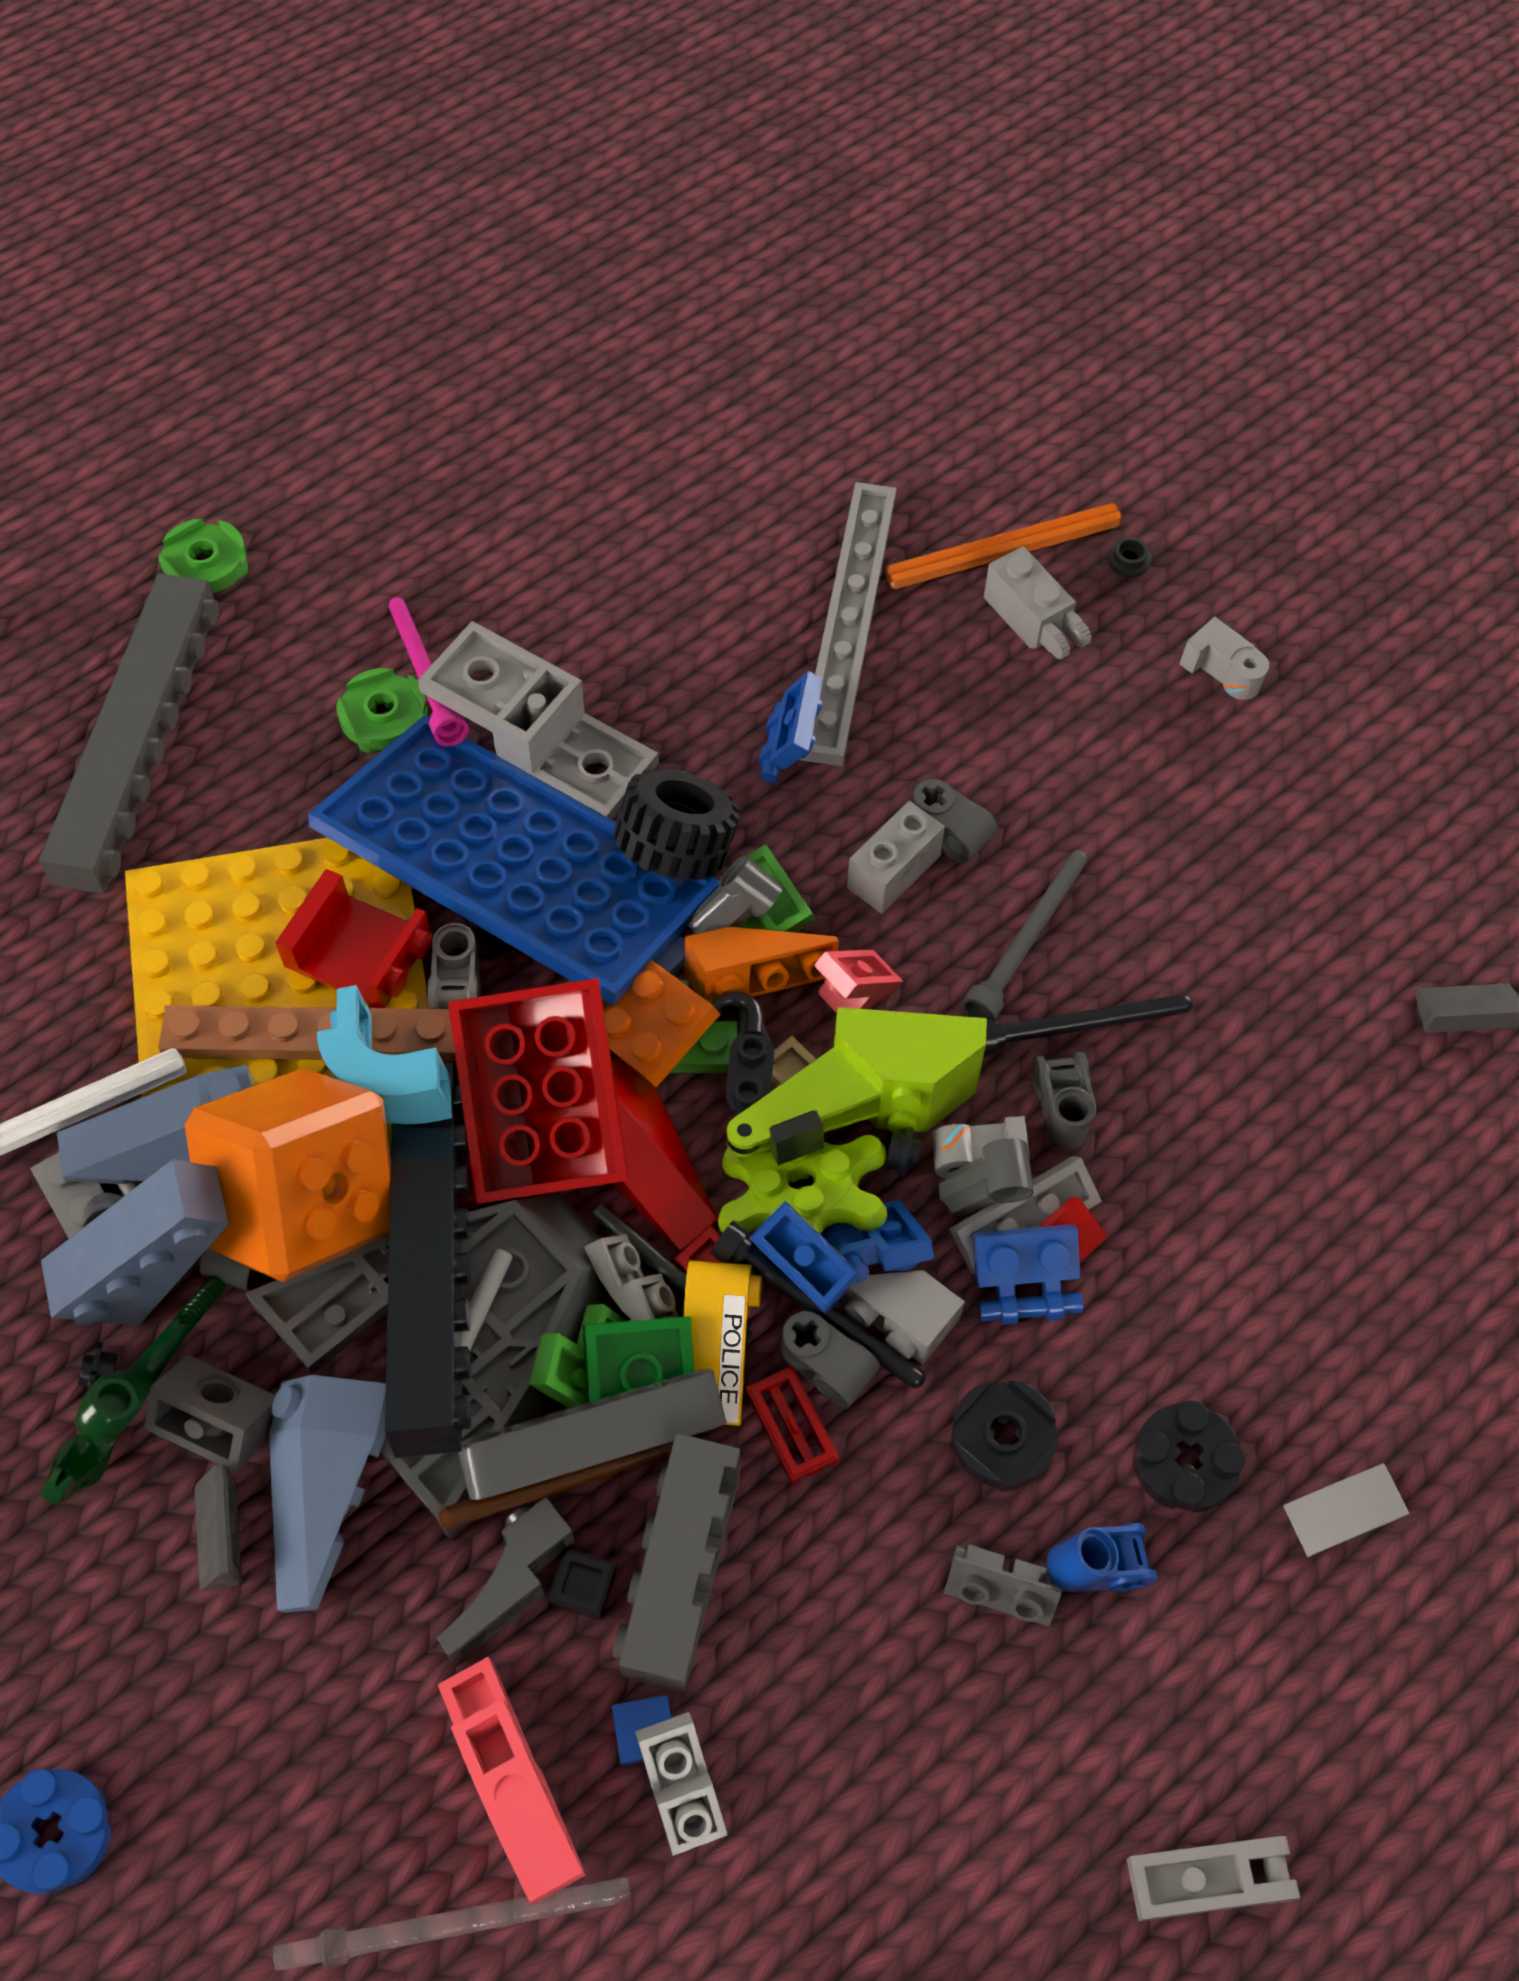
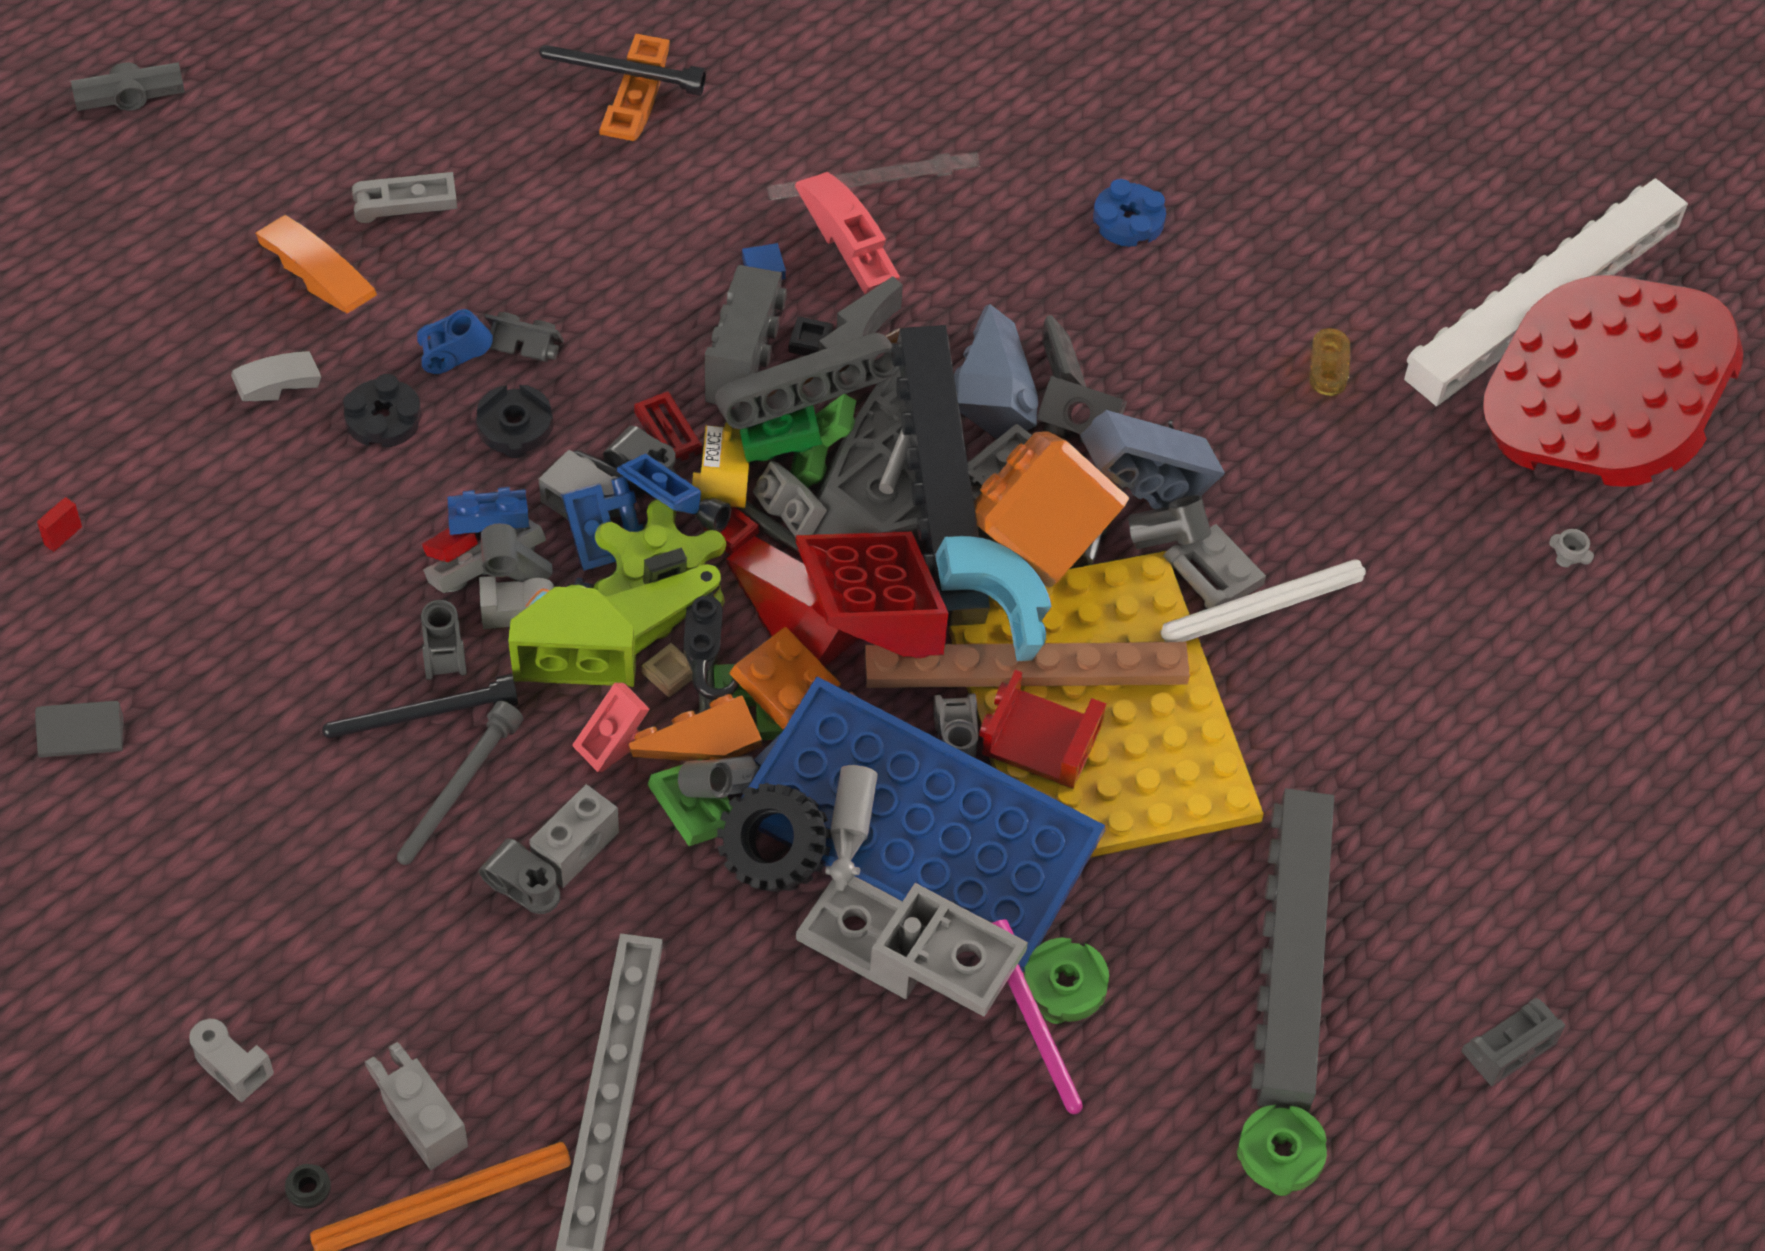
camera: 175 degrees right, 5 degrees down
(117, 1400) = (1154, 386): dark green animal -> none
(143, 1134) = (1145, 584): sand blue wedge -> none
(588, 840) = (851, 820): none -> light grey wheel
(681, 1783) = (737, 232): light grey slope -> none
(791, 727) = (670, 948): blue plate -> none
(1330, 1722) = (319, 265): none -> orange slope

